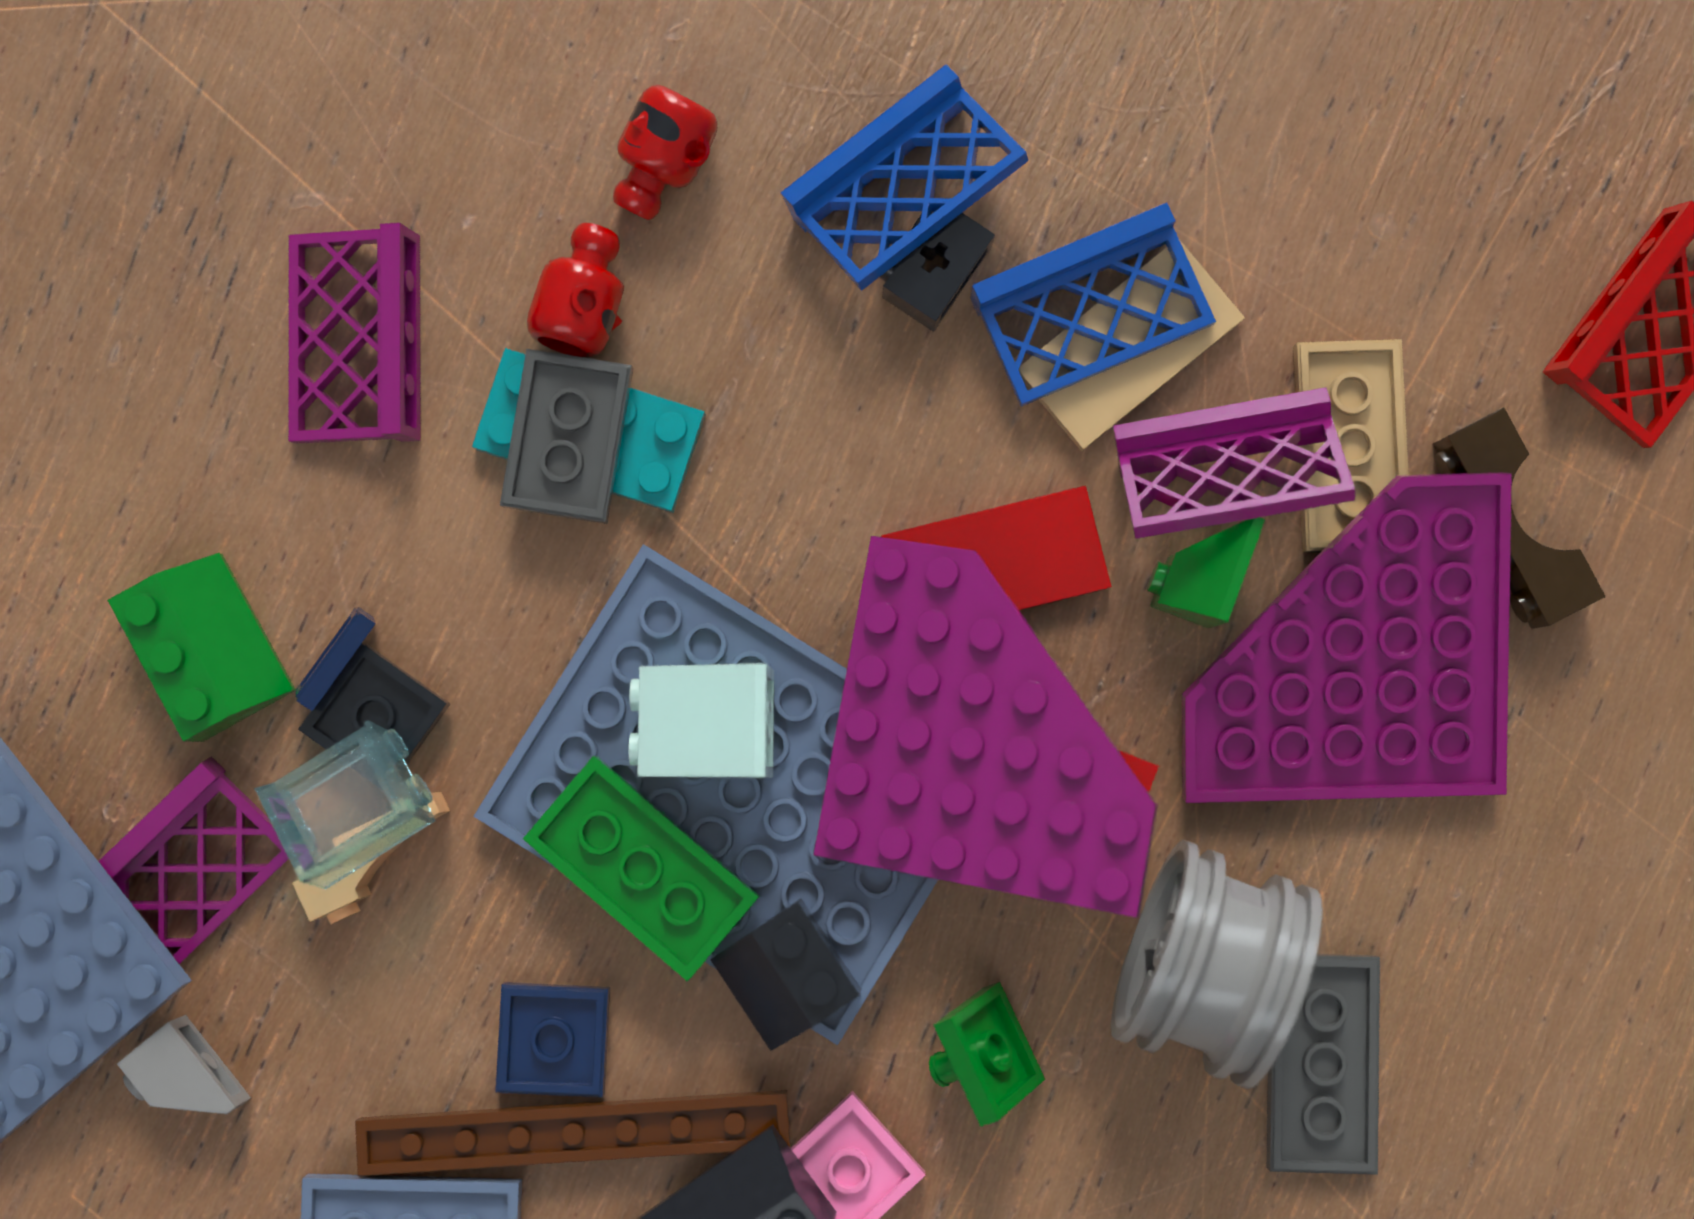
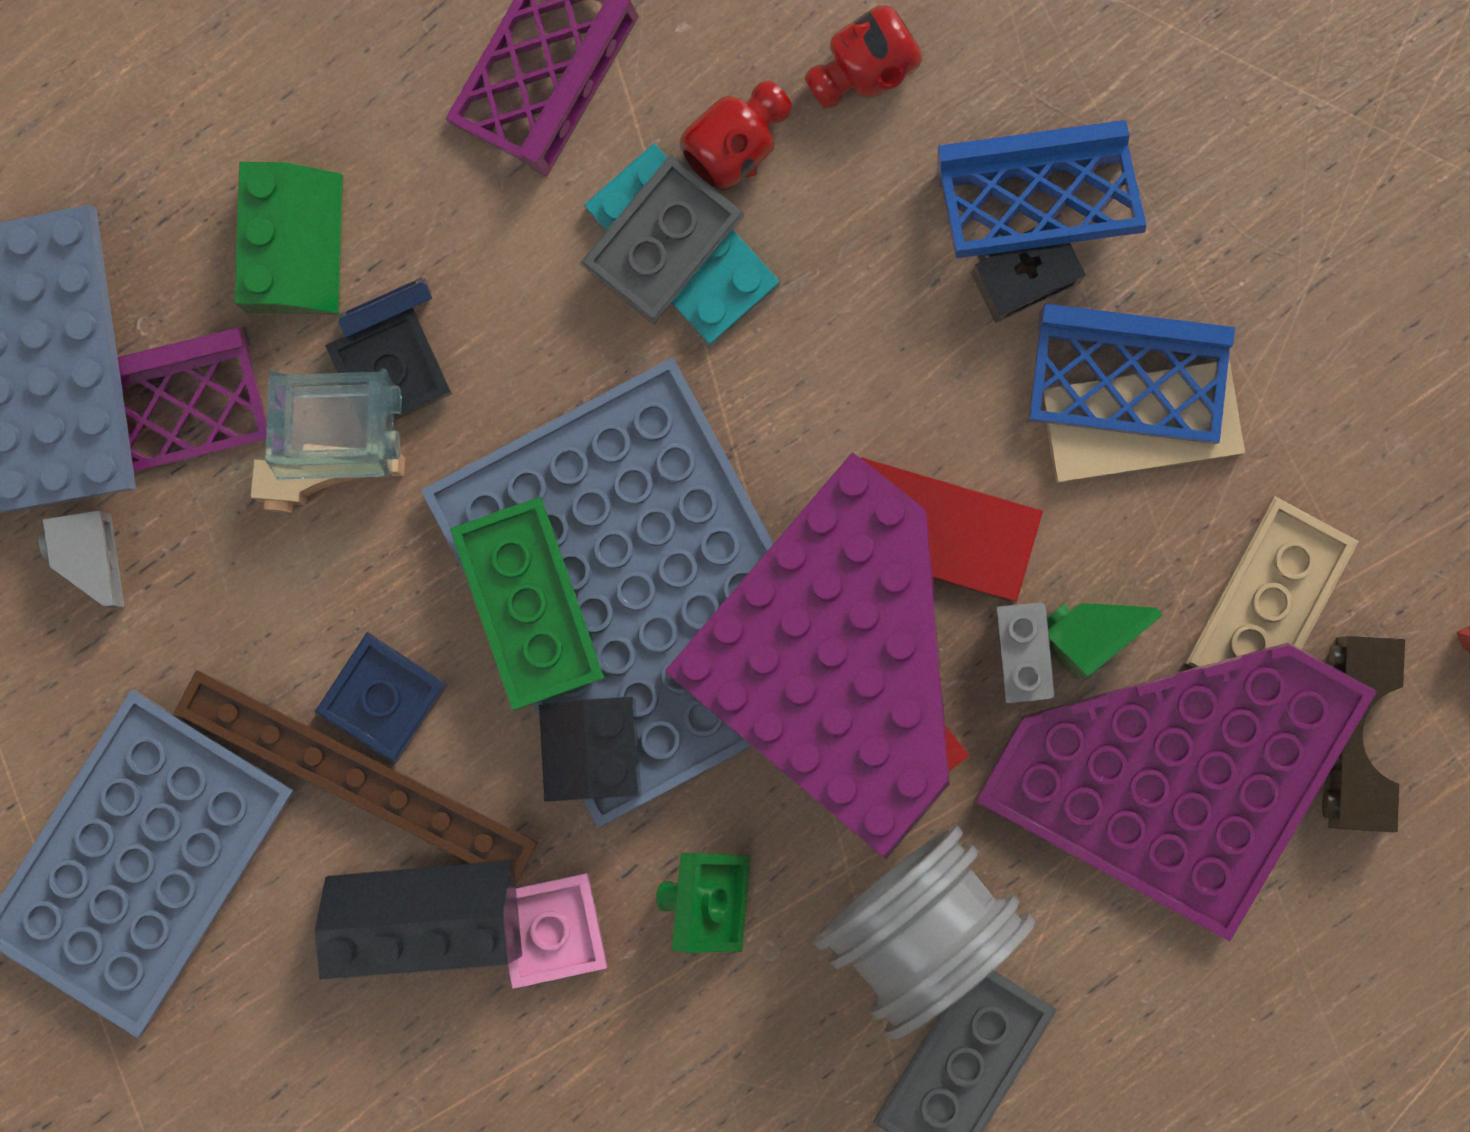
camera: 30 degrees right, 0 degrees up
(703, 721) = (640, 519): light aqua slope -> none
(1151, 632) = (1025, 652): none -> light grey bracket
(1228, 436) = (1171, 536): magenta fence -> none

